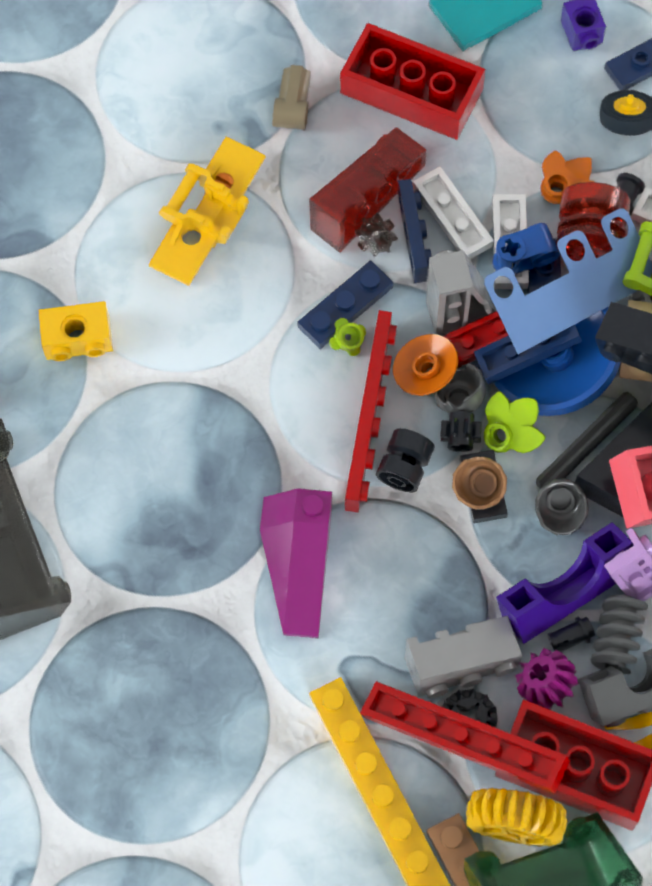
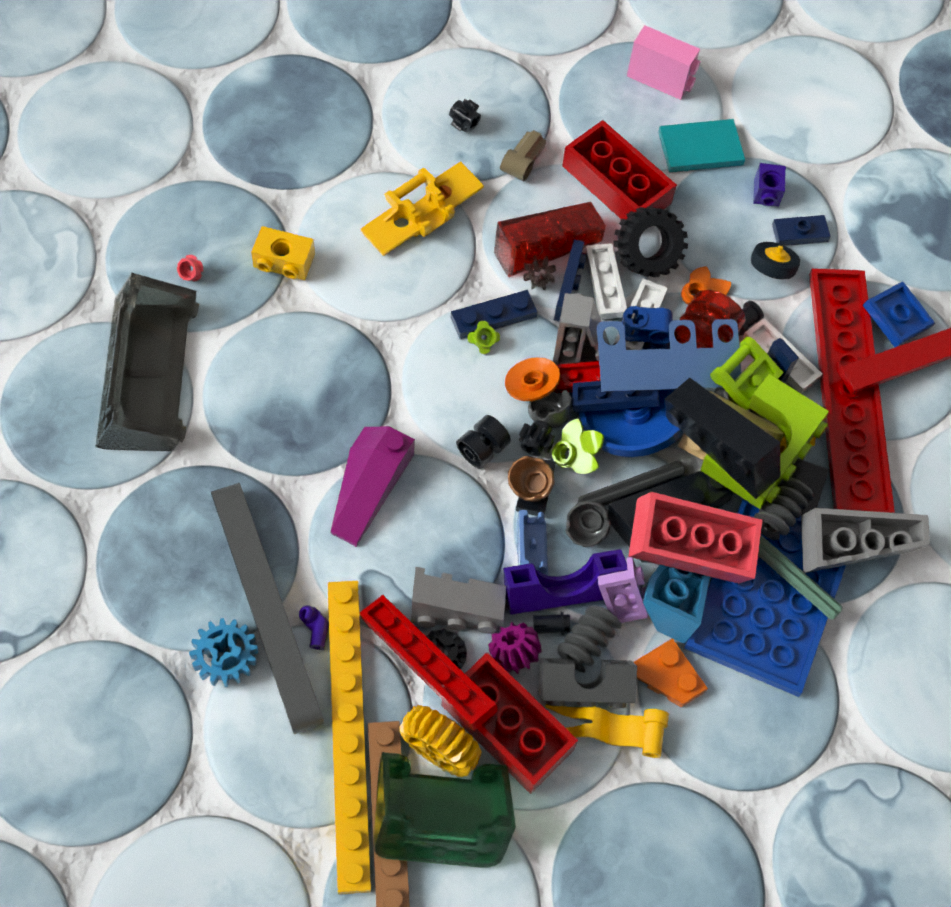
camera: 15 degrees right, 5 degrees down
(203, 76) = (464, 115): none -> black gear
(249, 818) = (226, 638): none -> dark azure gear
(256, 749) = (267, 609): none -> dark grey beam
(320, 745) = (316, 624): none -> dark purple arm
(369, 424) = (469, 402): red plate -> none
(508, 553) = (532, 540): none -> medium blue hinge
(509, 149) = (670, 248): none -> black tyre

